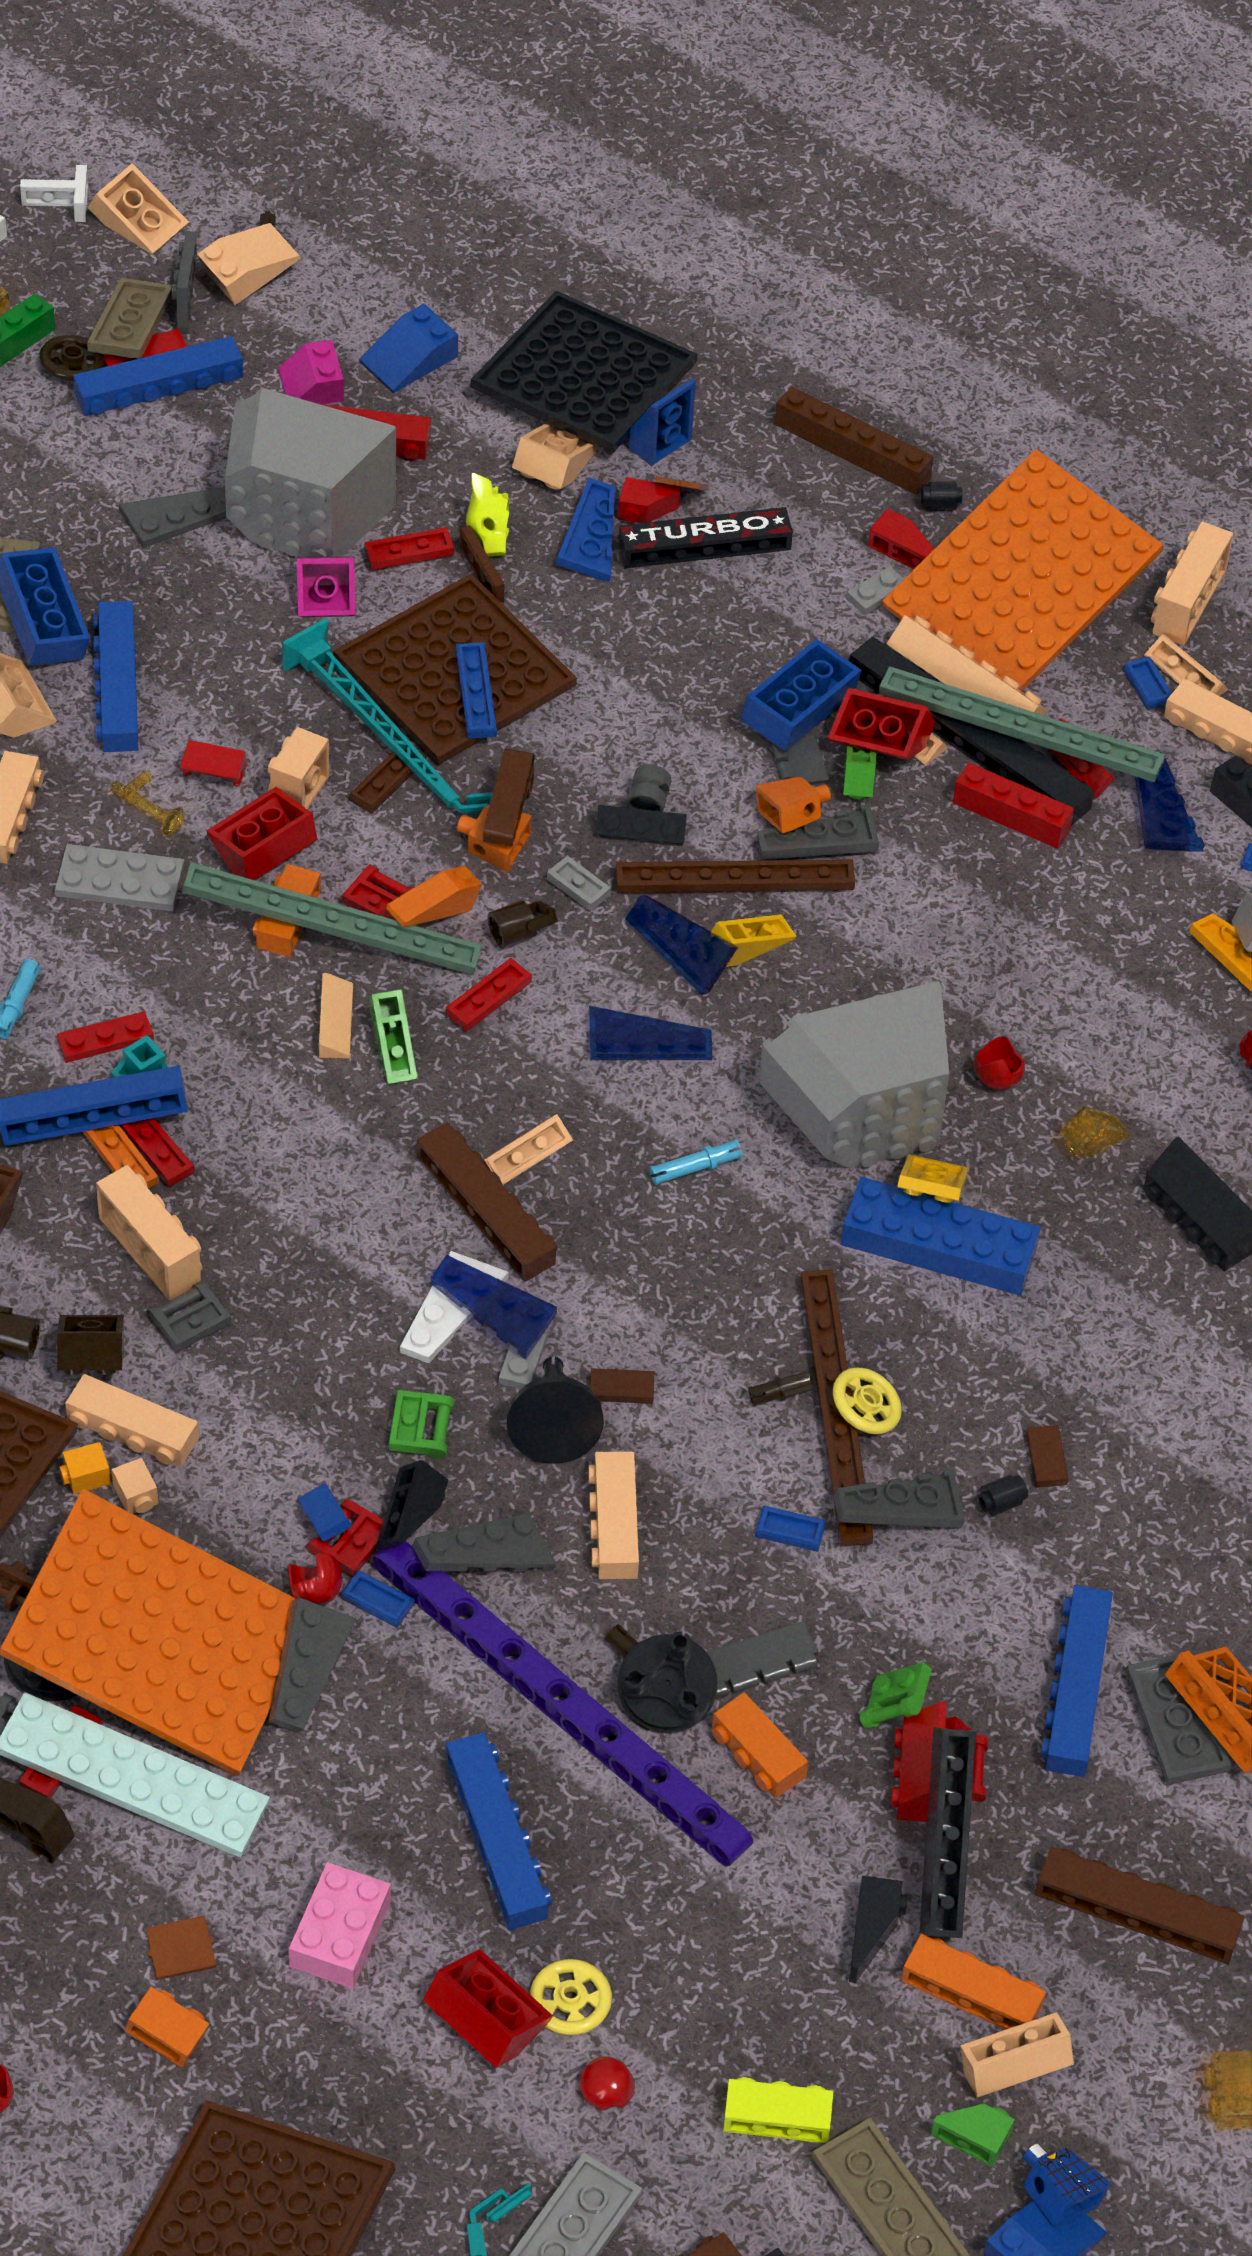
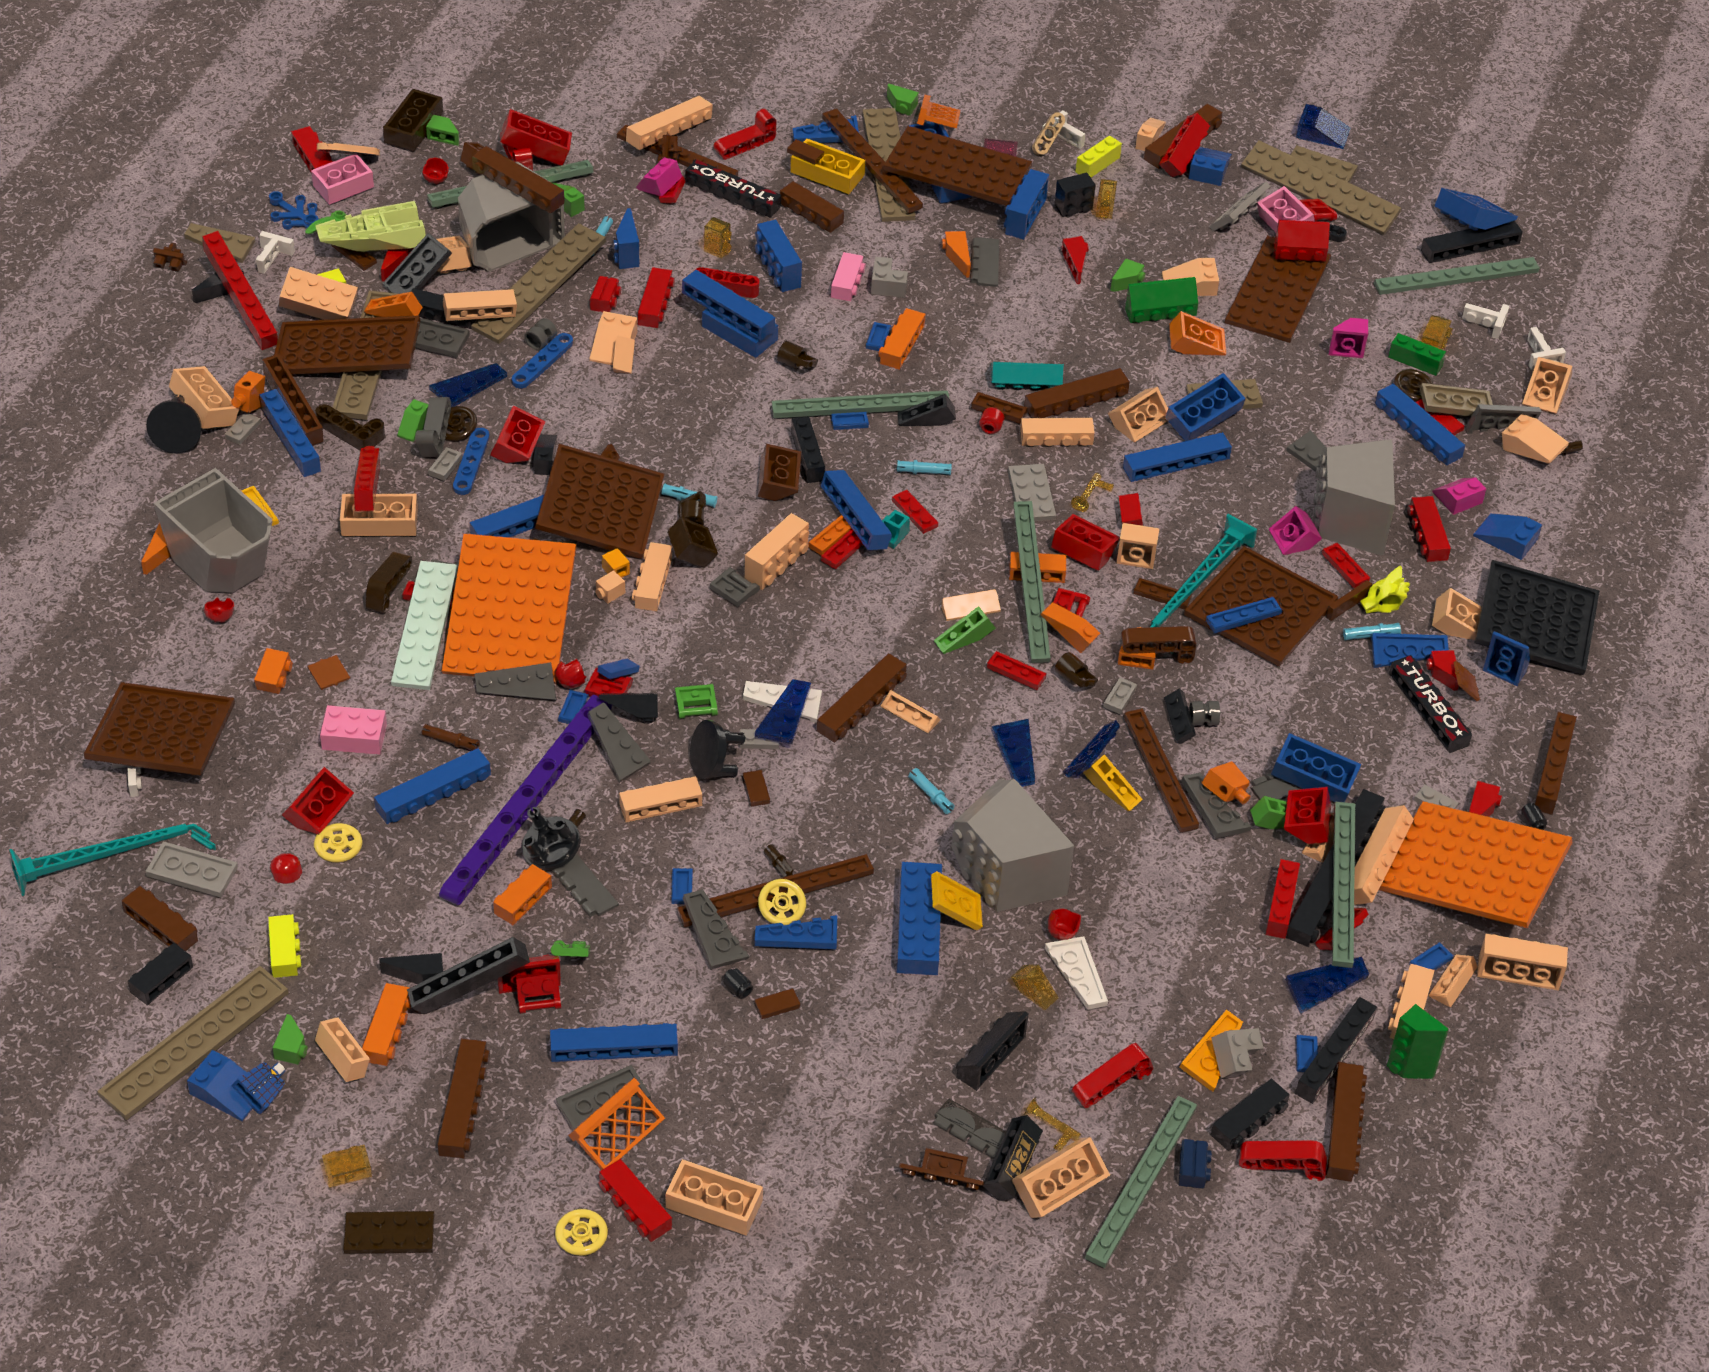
camera: 75 degrees right, 5 degrees down
(403, 1775) = (458, 740): none -> reddish brown pin
(548, 551) = (1366, 632): none -> medium azure pin
(928, 1391) = (814, 934): none -> blue wing
(1069, 1074) = (1078, 968): none -> white wing

